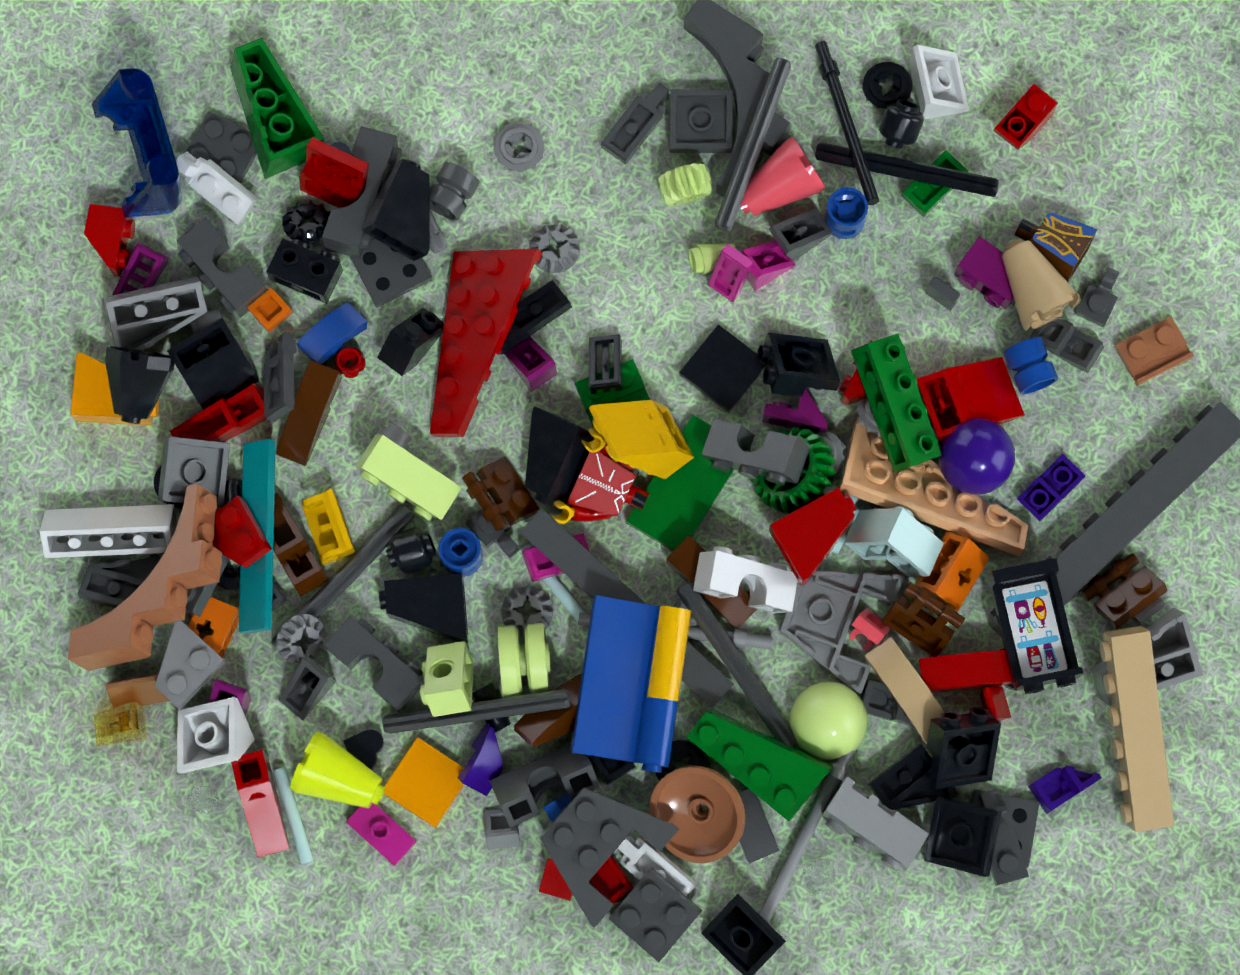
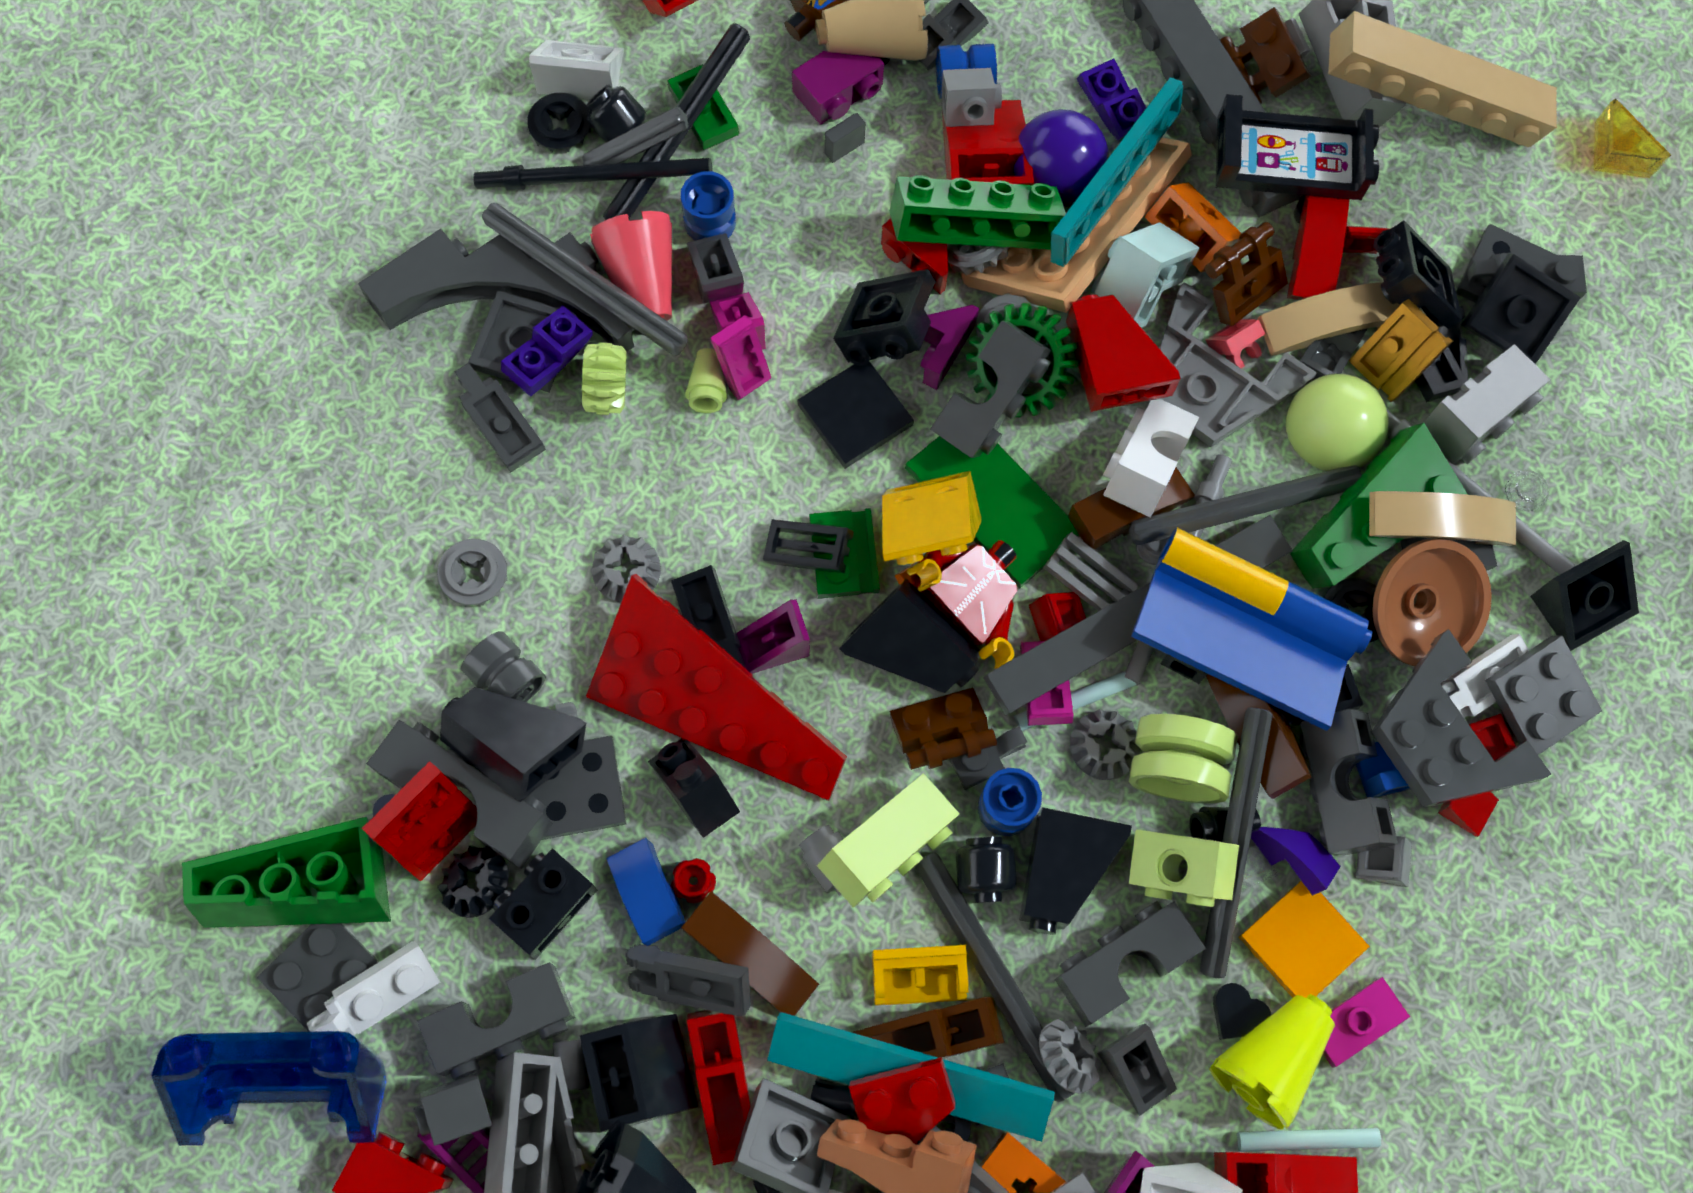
camera: 80 degrees left, 5 degrees down
(156, 257) = (452, 1110): none -> dark grey brick
(270, 310) = (582, 970): orange plate -> none
(613, 554) = (1056, 613): none -> red slope
(659, 571) = (1096, 560): none -> light grey tile
(693, 139) = (549, 350): none -> dark purple slope
(760, 806) = (1442, 517): none -> tan slope
(880, 143) = (639, 138): none -> dark grey axle
(896, 748) = (1400, 350): none -> pearl gold plate
(973, 498) = (1116, 172): none -> teal tile
(1000, 372) = (969, 97): none -> light grey brick
(1061, 786) = (1471, 198): dark purple slope -> none
(1146, 894) = (1625, 144): none -> clear yellow slope

